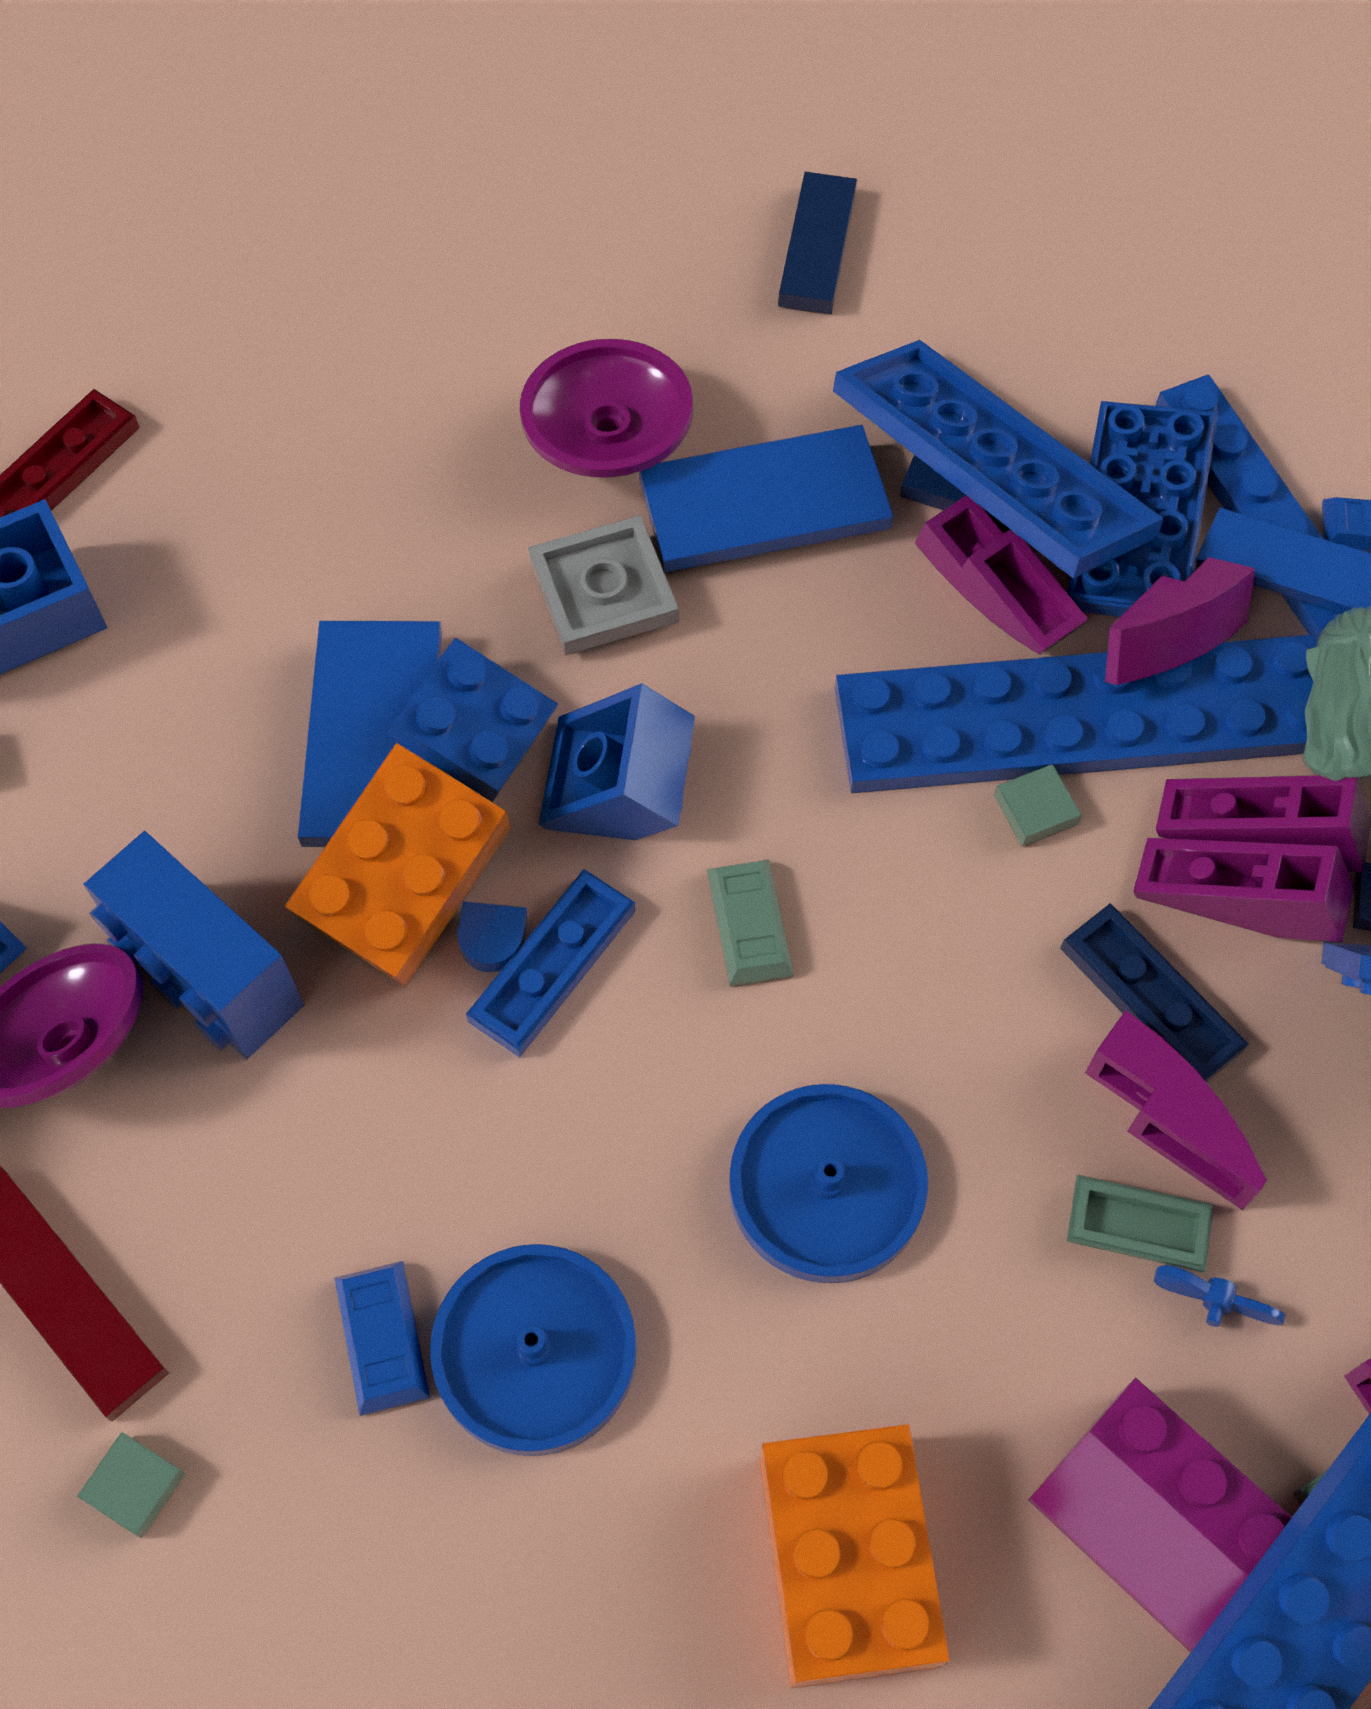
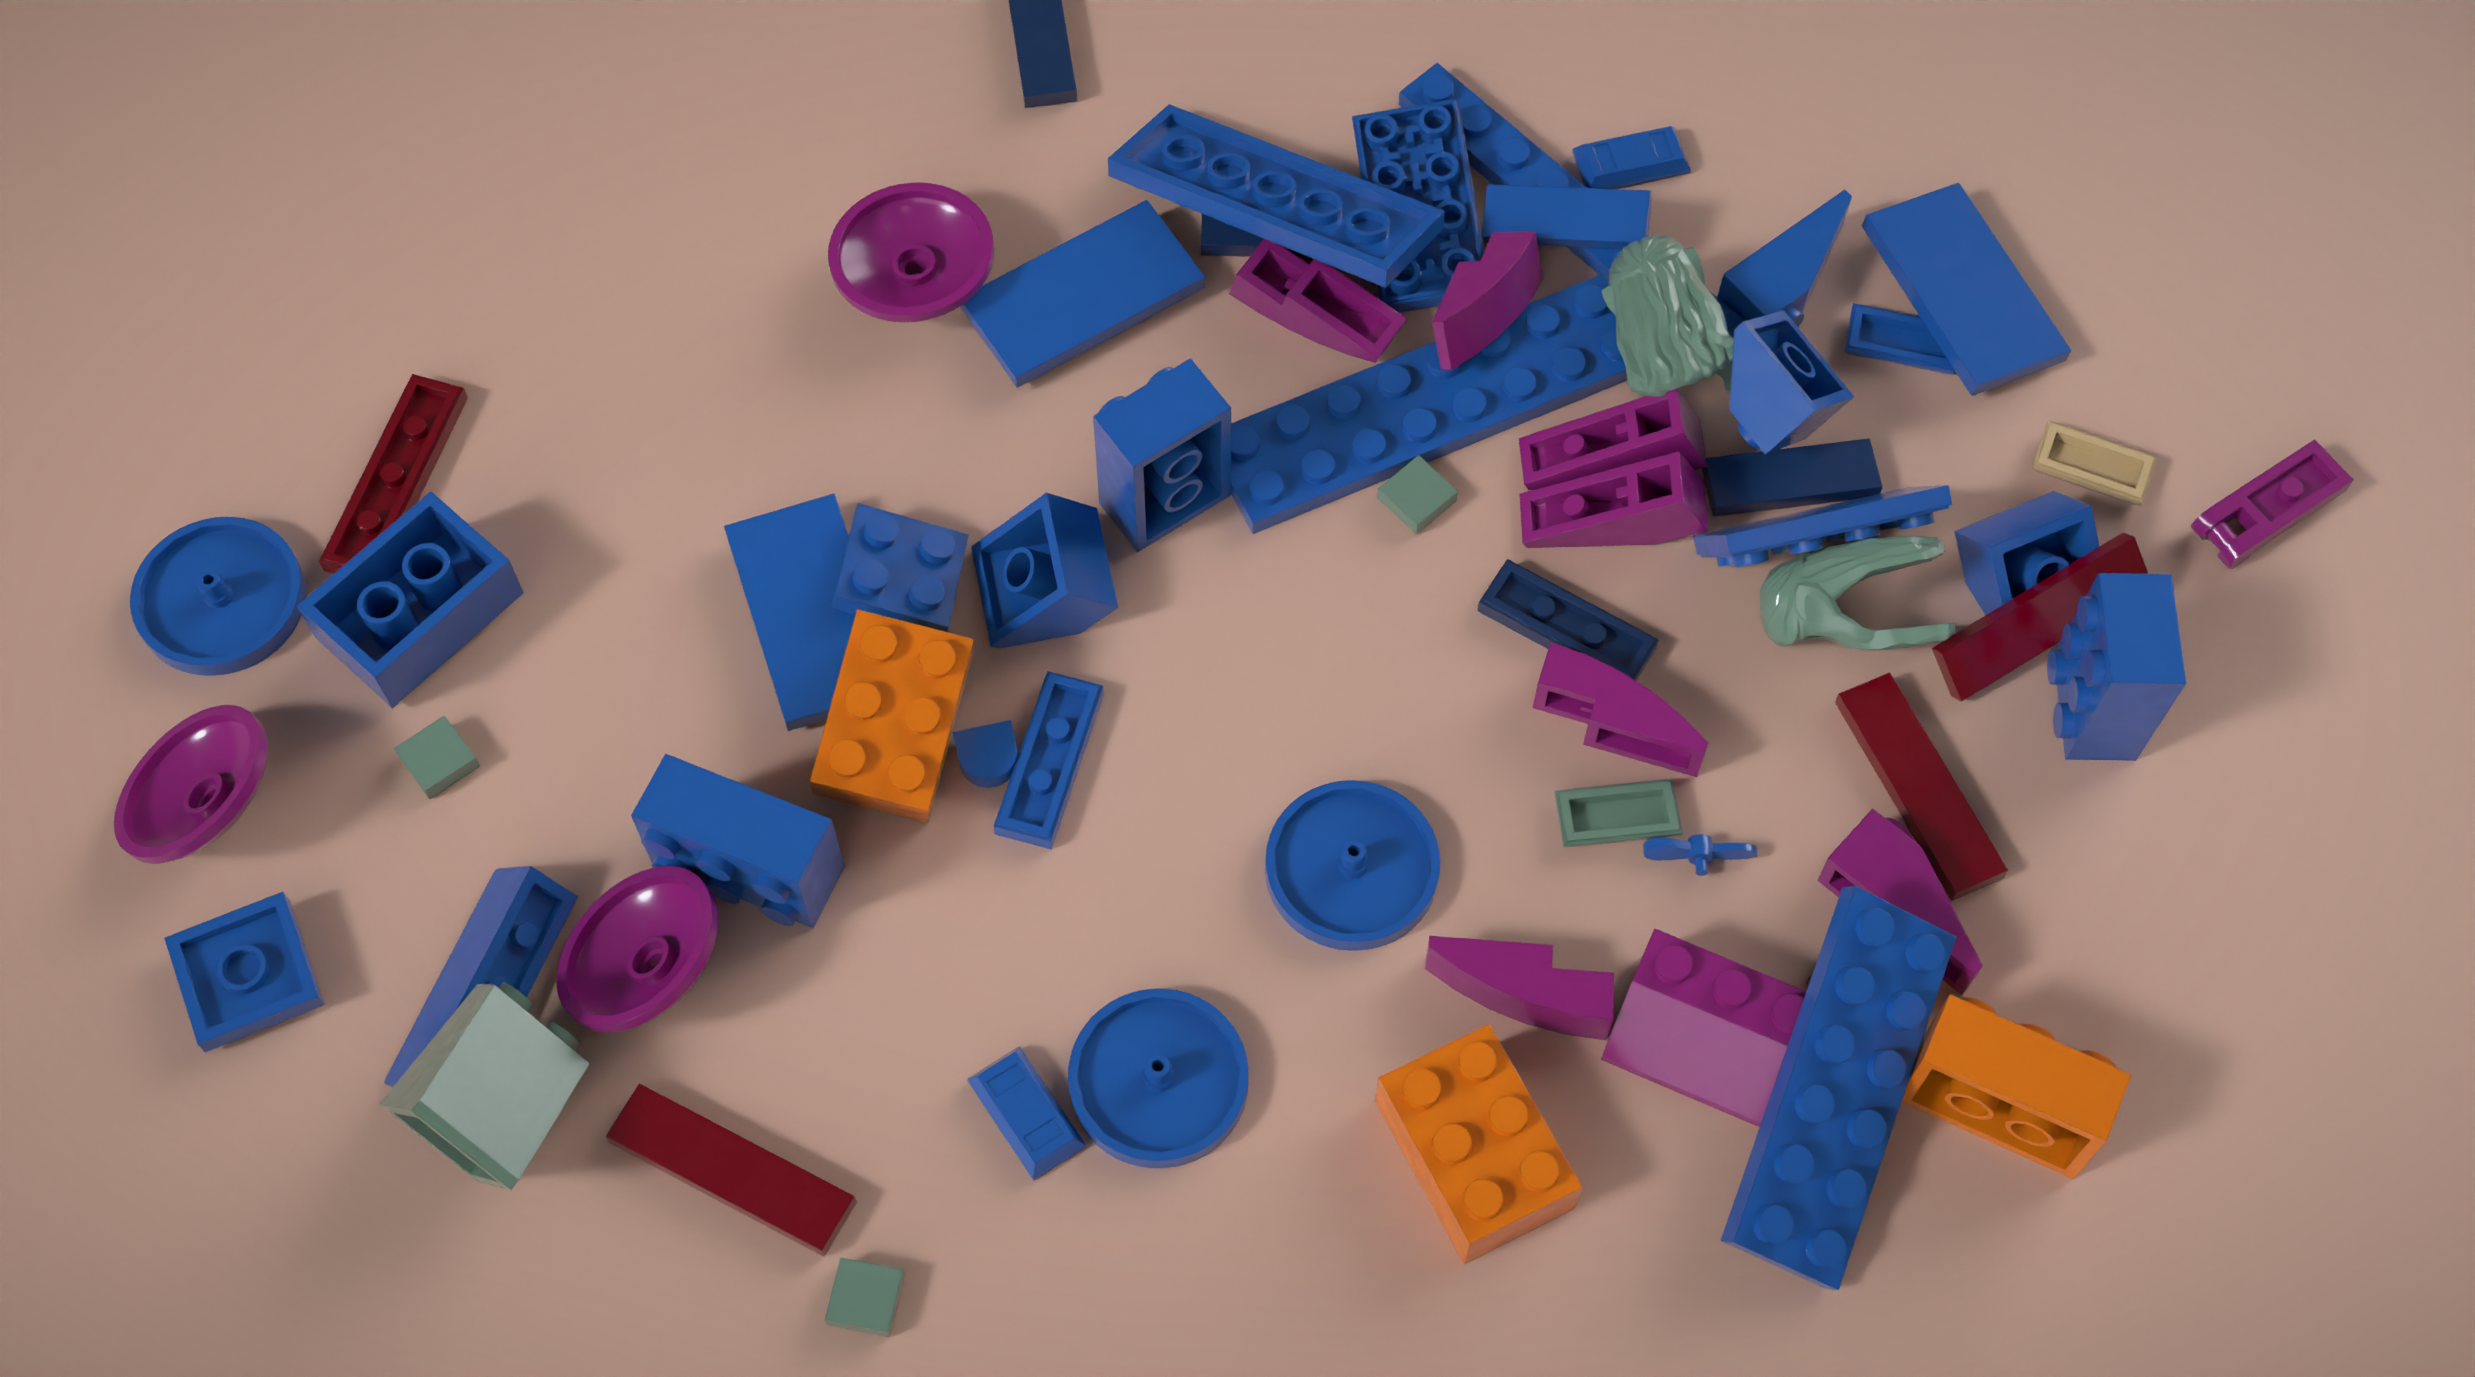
camera: 20 degrees left, 0 degrees up
(603, 585) = (967, 415): light grey plate -> none
(750, 923) = (1207, 672): sand green tile -> none
(778, 678) = (1163, 453): none -> blue brick
(968, 1387) = (1522, 984): none -> magenta slope

